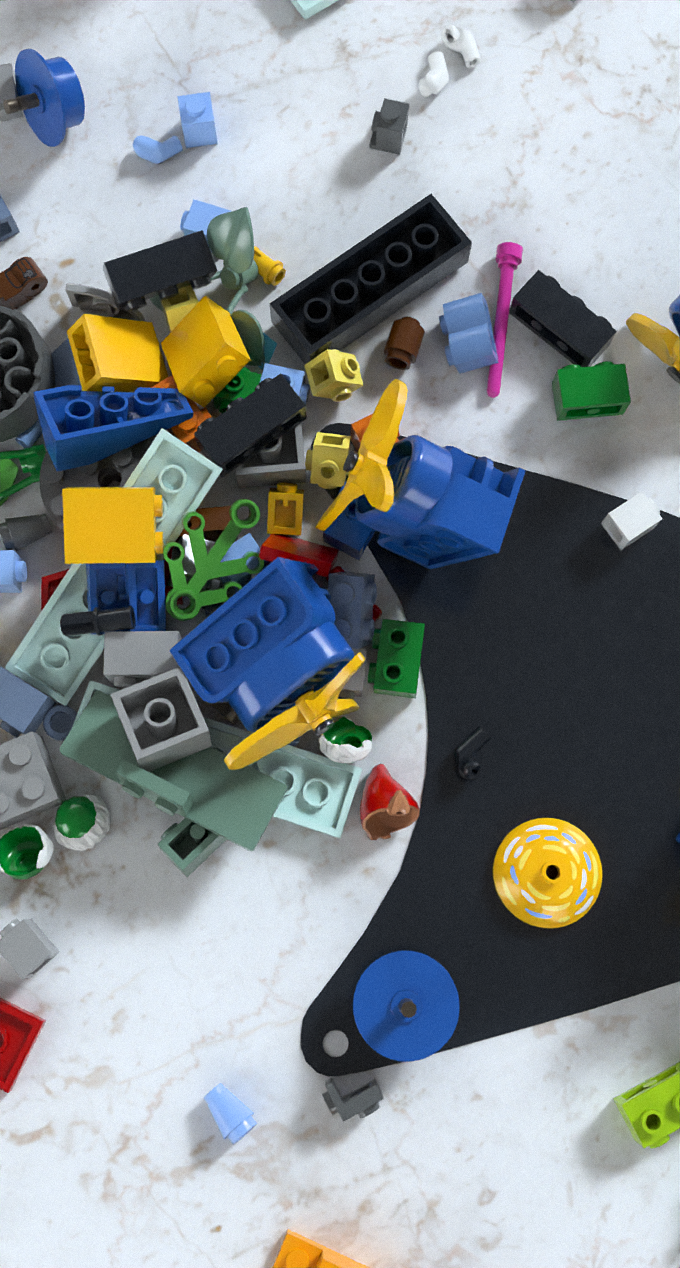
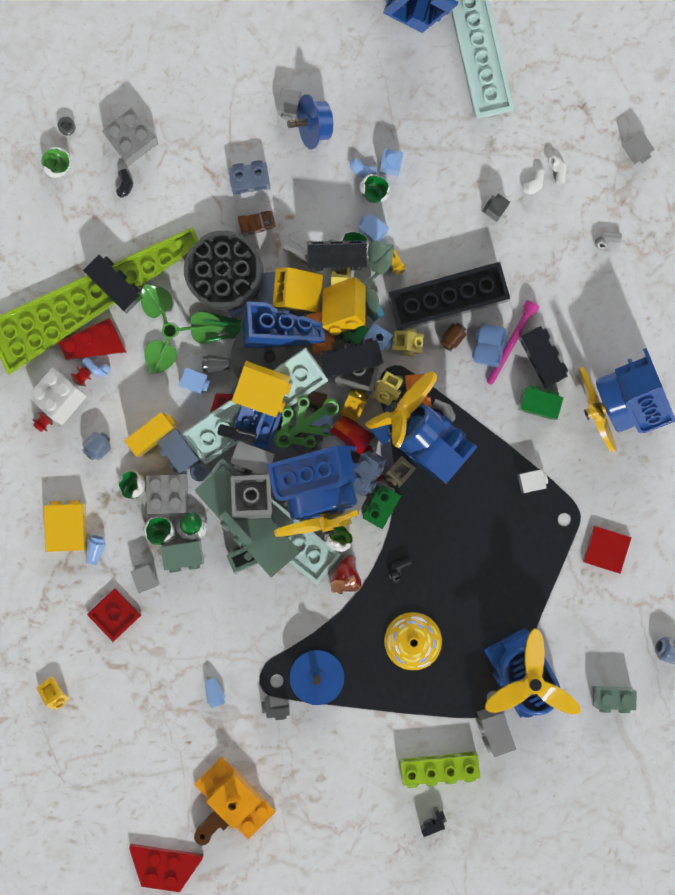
camera: 25 degrees right, 10 degrees up
(80, 879) = (182, 555): none -> sand green brick
(186, 167) = (374, 188): none -> green hair
(404, 593) = (398, 473): none -> dark tan bracket
(580, 113) = (607, 237): none -> light grey arm

